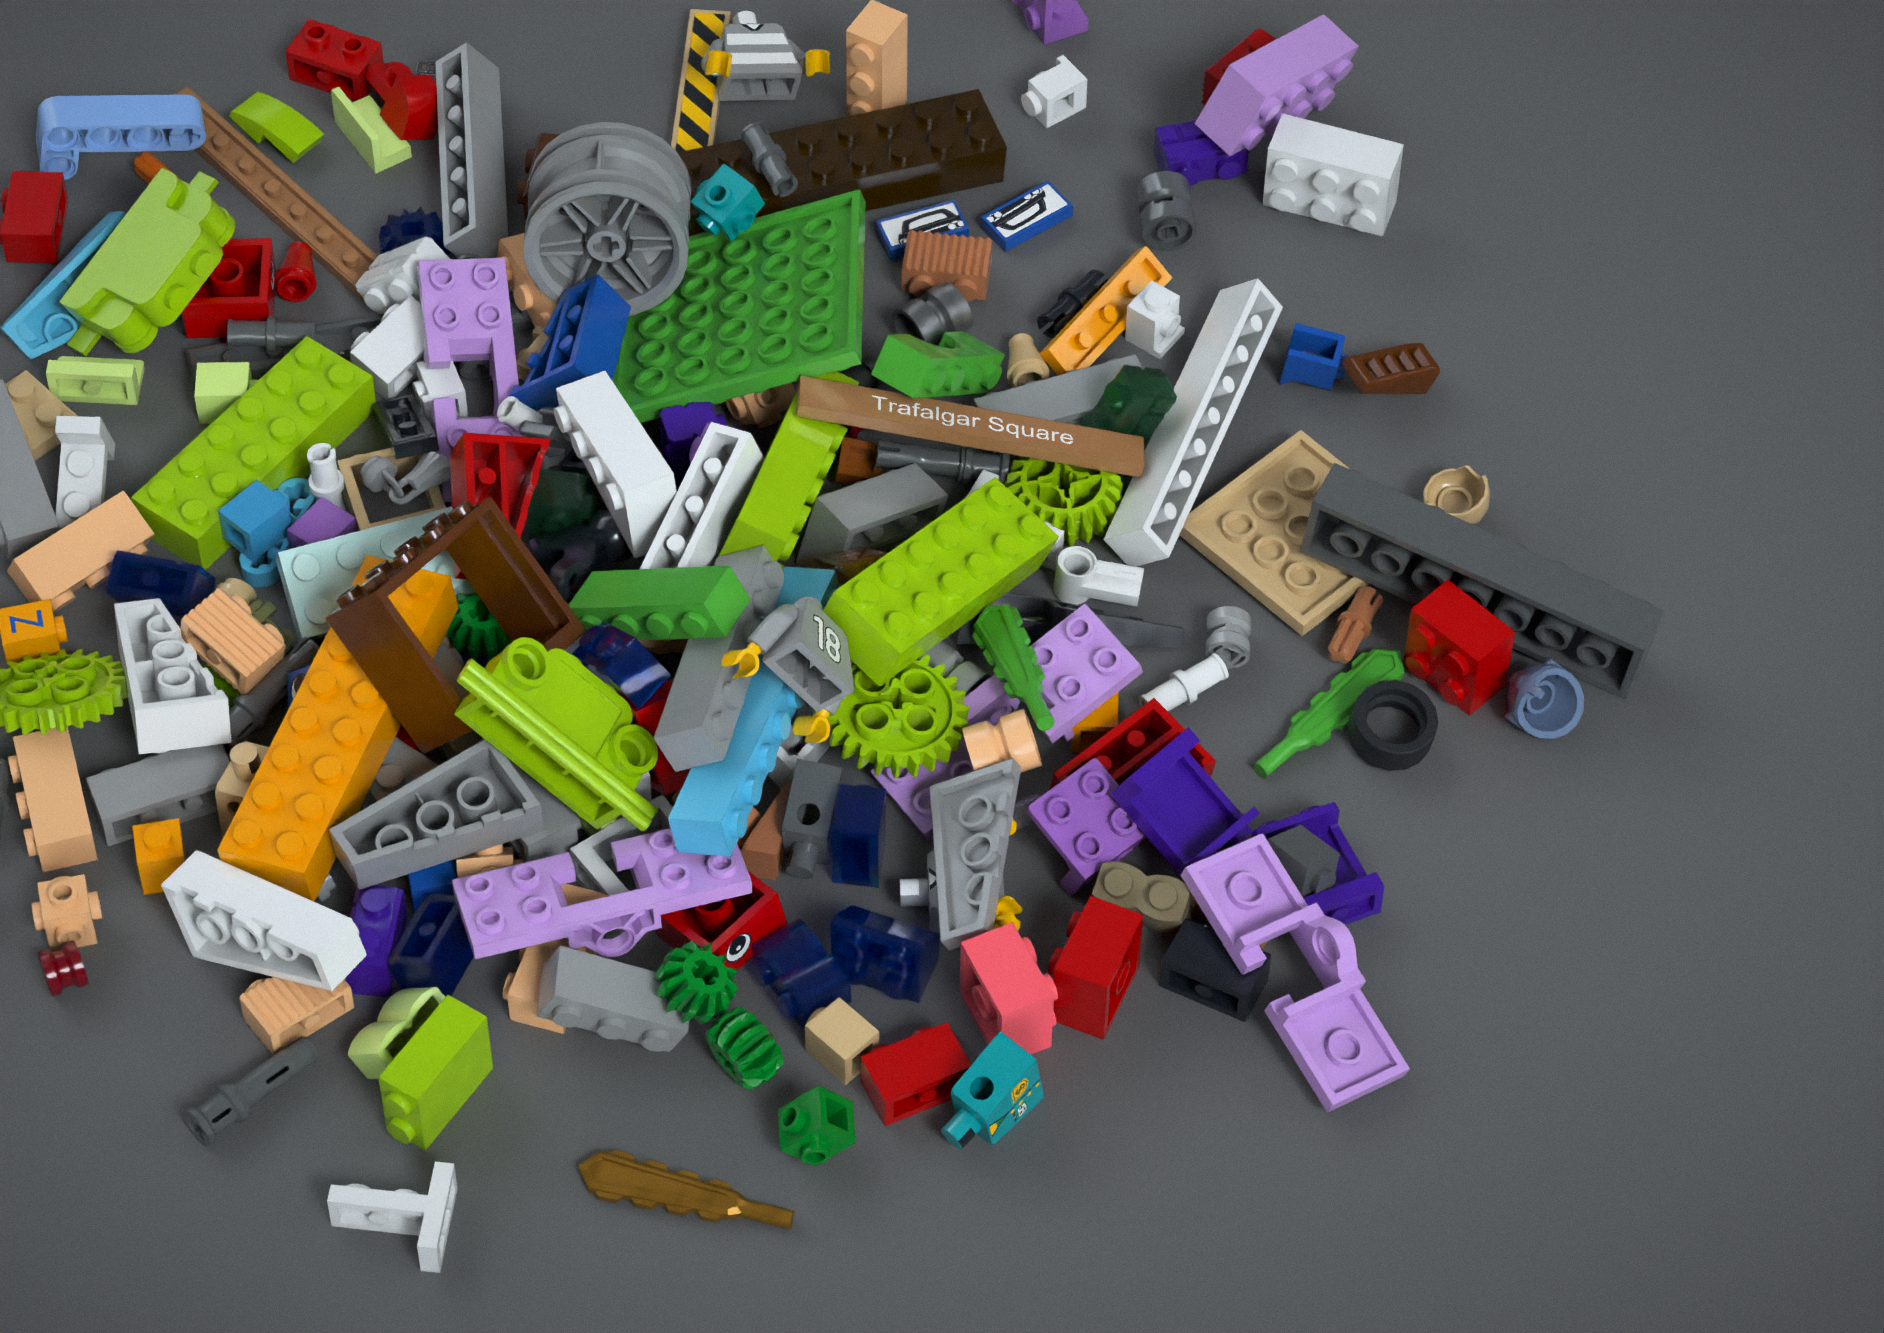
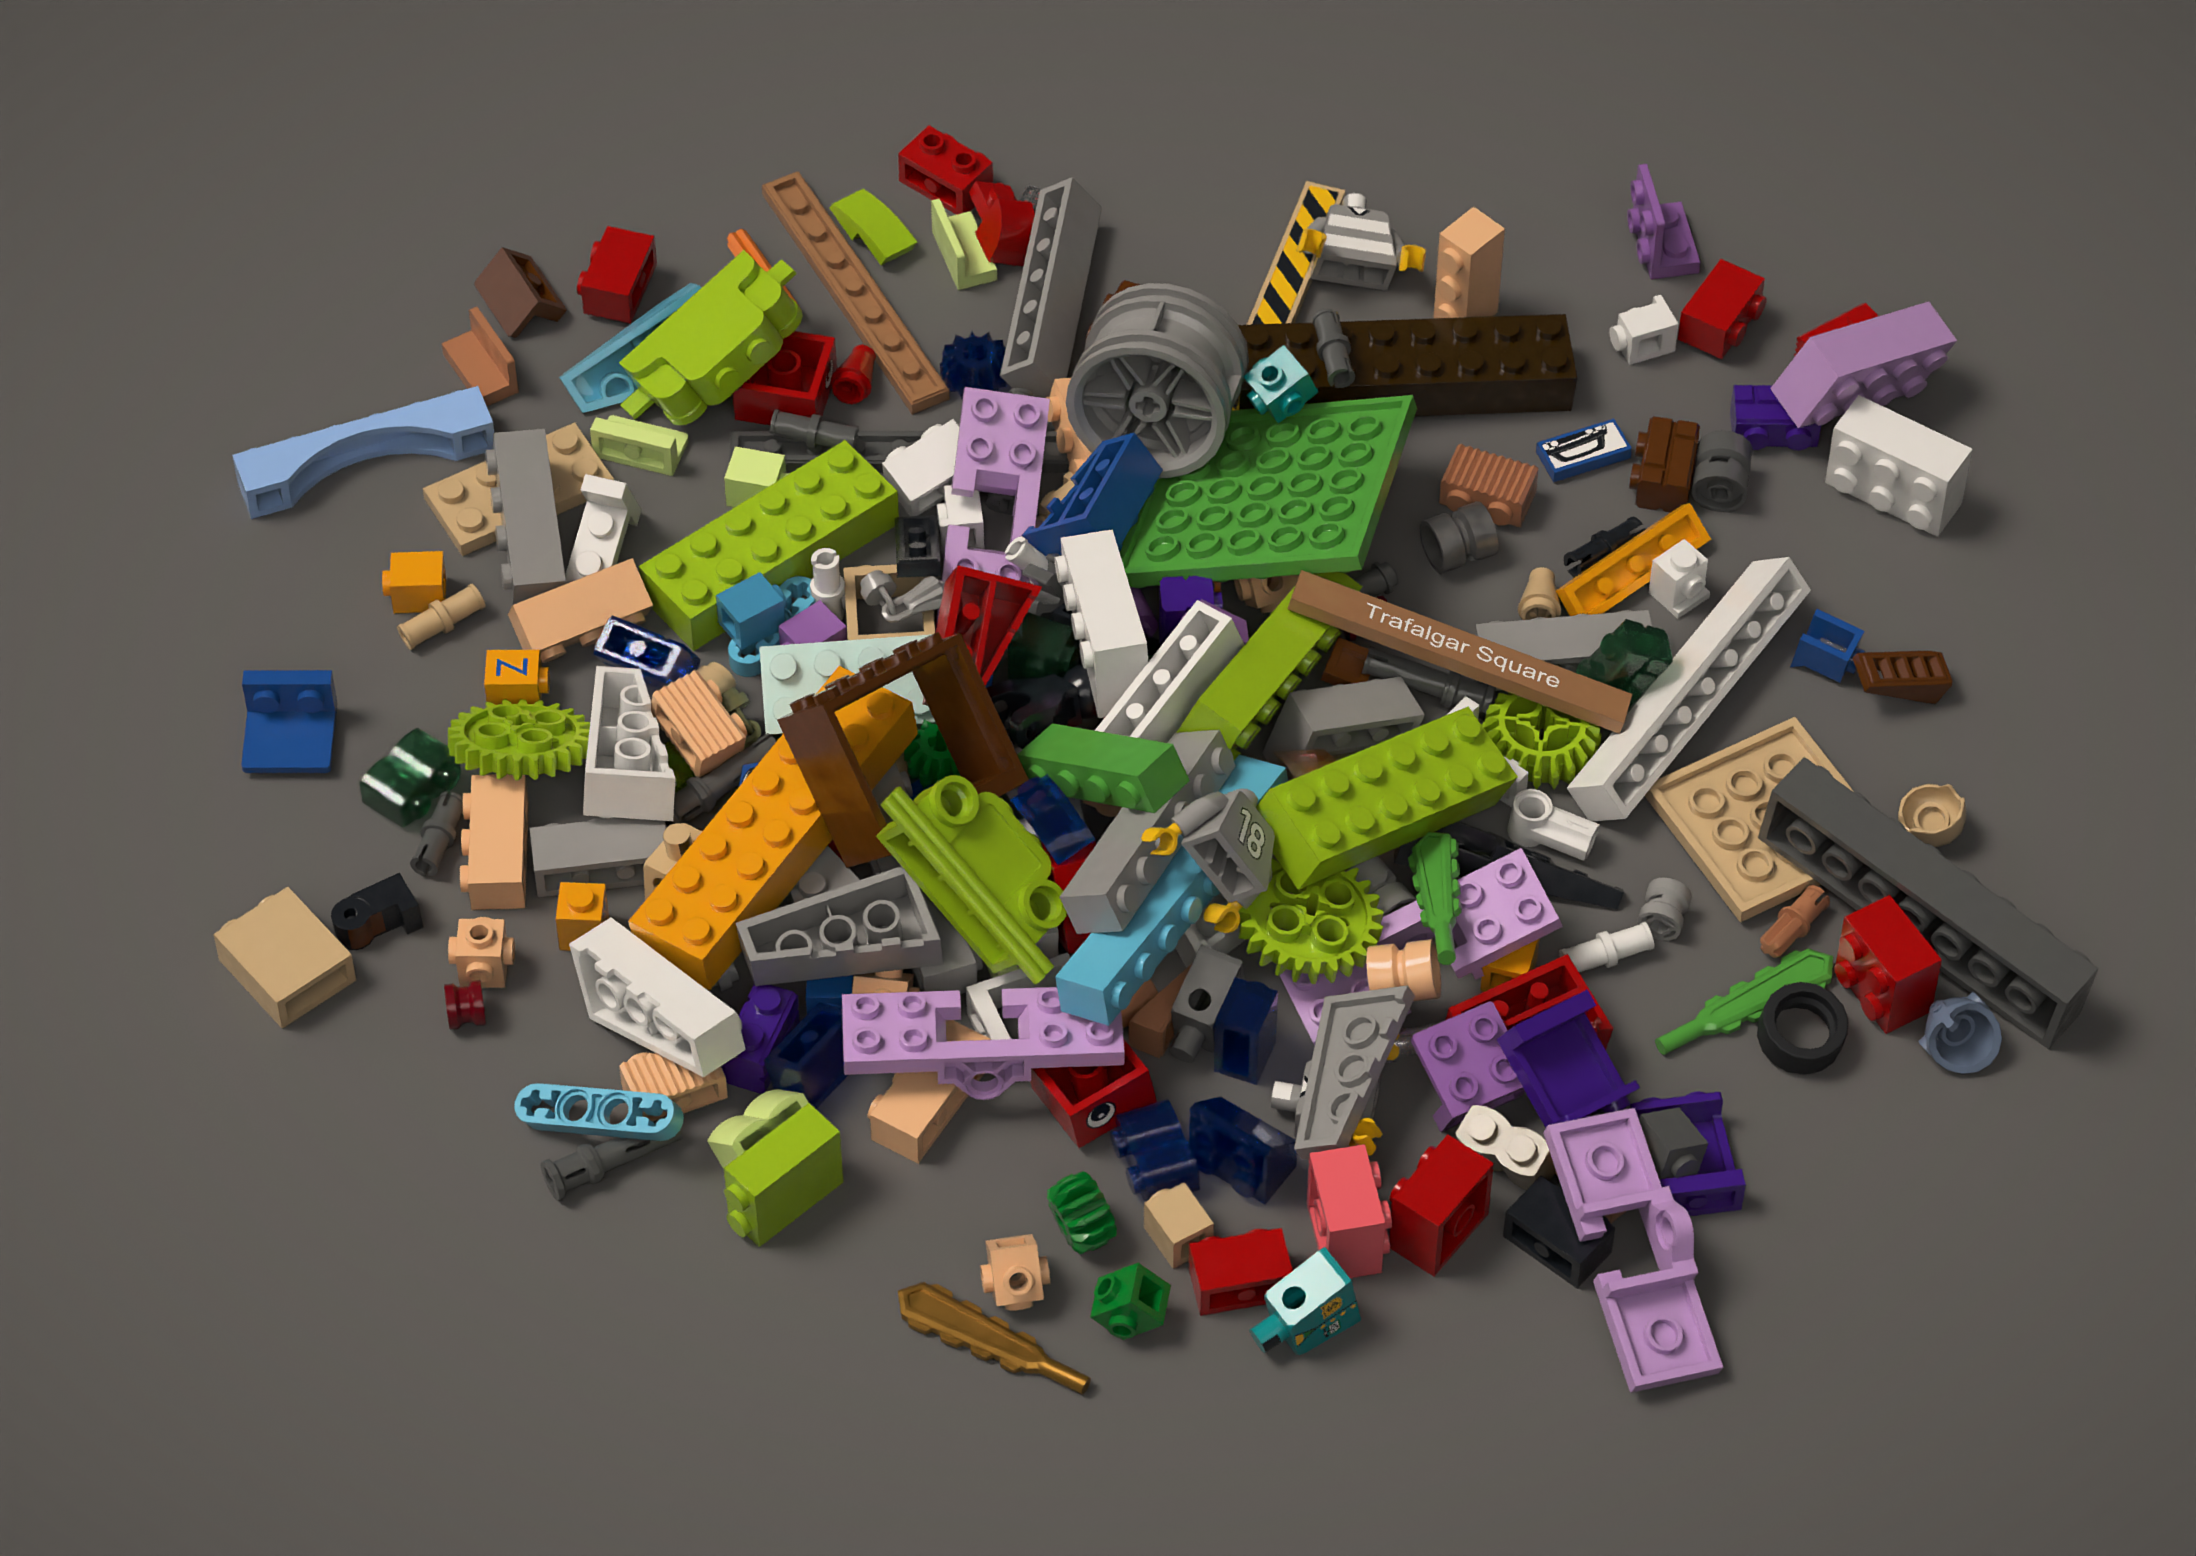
camera: 15 degrees right, 0 degrees up
(114, 125) = (716, 198): light blue beam -> none
(229, 1053) = (597, 1117): none -> medium azure beam
(395, 274) = (943, 394): white brick -> none
(401, 1212) = (721, 1300): white bracket -> none
(608, 1000) = (969, 1140): light grey brick -> none
(693, 1121) = (1009, 1257): none -> light nougat brick
(696, 982) = (1049, 1140): green gear -> none
(926, 370) = (1427, 587): bright green arch -> none
(936, 218) = (1491, 437): tile -> none
(1111, 214) = (1667, 464): none -> reddish brown brick
(1123, 59) = (1722, 309): none -> red brick

